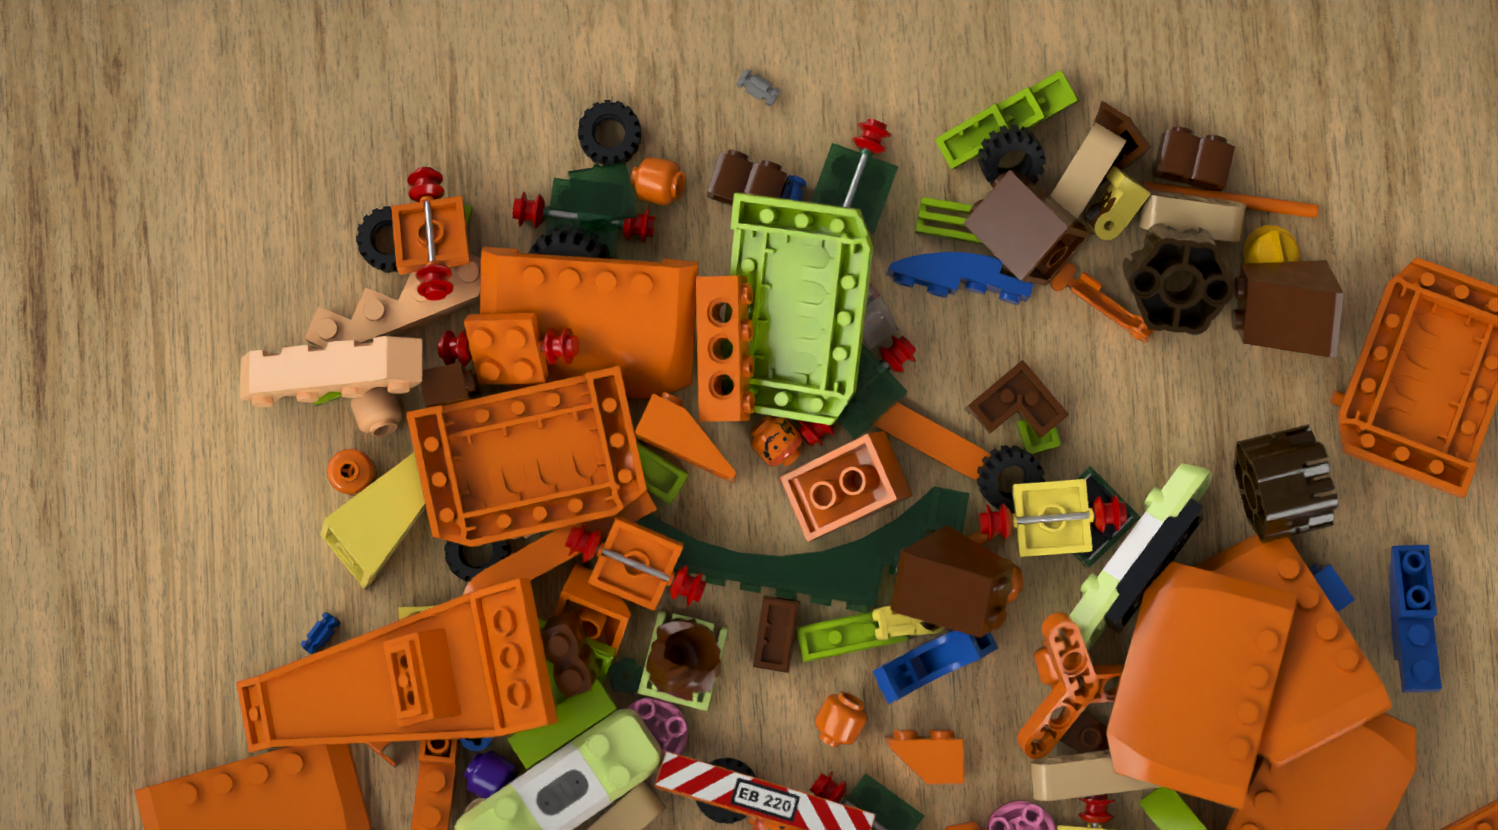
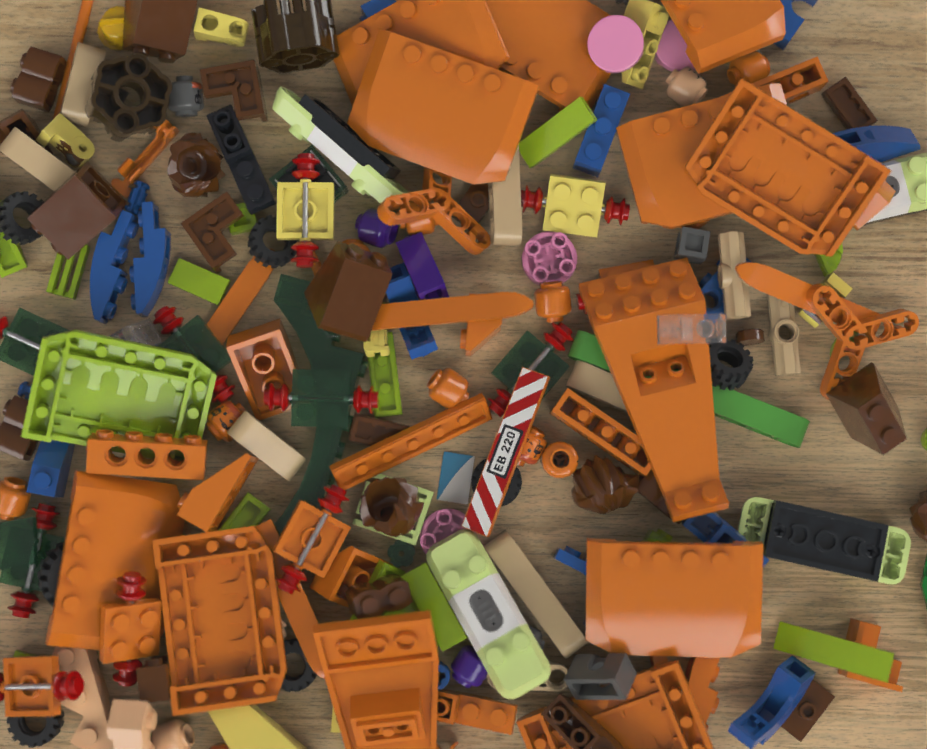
camera: 85 degrees left, 0 degrees up
(698, 227) = (51, 469): none -> blue slope
(727, 736) = (455, 477): none -> sticker
(748, 494) = (267, 445): none -> tan beam
(768, 678) = (411, 442): none -> orange tile
(813, 558) = (321, 398): none -> clear green plate
(939, 718) = (451, 310): none -> orange piece
(951, 387) = (199, 281): none -> lime tile
(958, 325) = (151, 270): none -> blue slope
(983, 678) = (422, 267): none -> dark purple slope
(1036, 605) = (373, 230): none -> dark purple head
(1052, 298) = (137, 196): none -> blue piece
(1098, 370) = (194, 166): none -> reddish brown hair
(1113, 427) = (241, 159): none -> black slope
(1188, 351) = (186, 97): none -> dark grey head
(1215, 416) = (242, 82): none -> reddish brown panel
(1283, 384) = (220, 28): none -> light yellow leg

